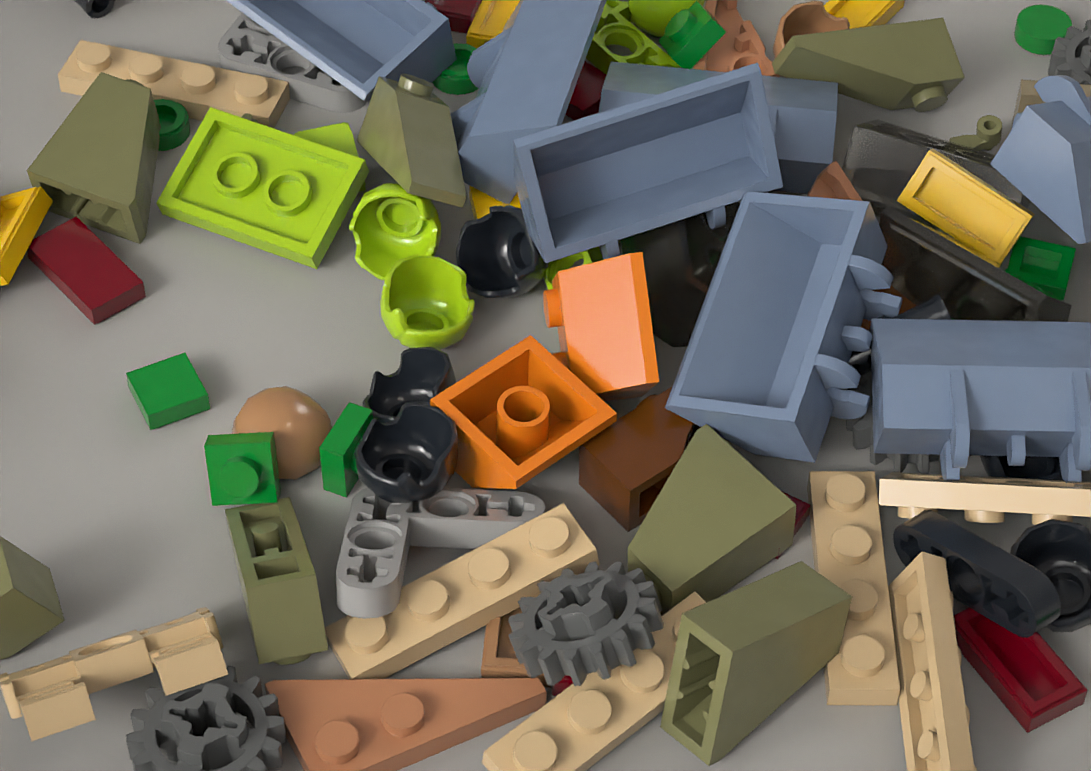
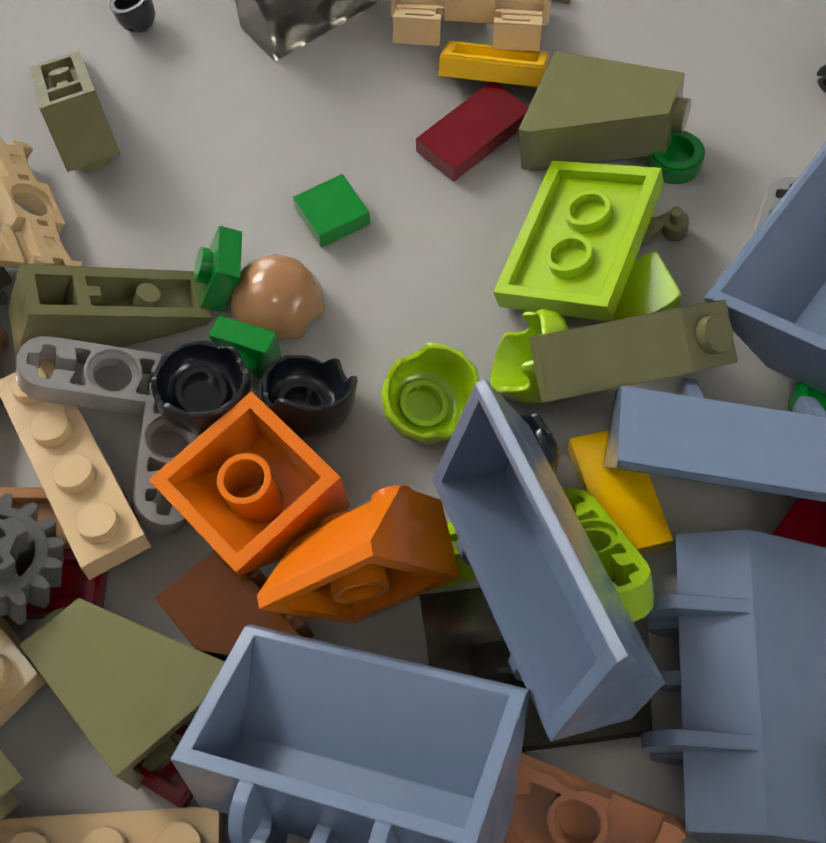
camera: 90 degrees right, 15 degrees up
(182, 81) = (730, 161): tan plate -> none

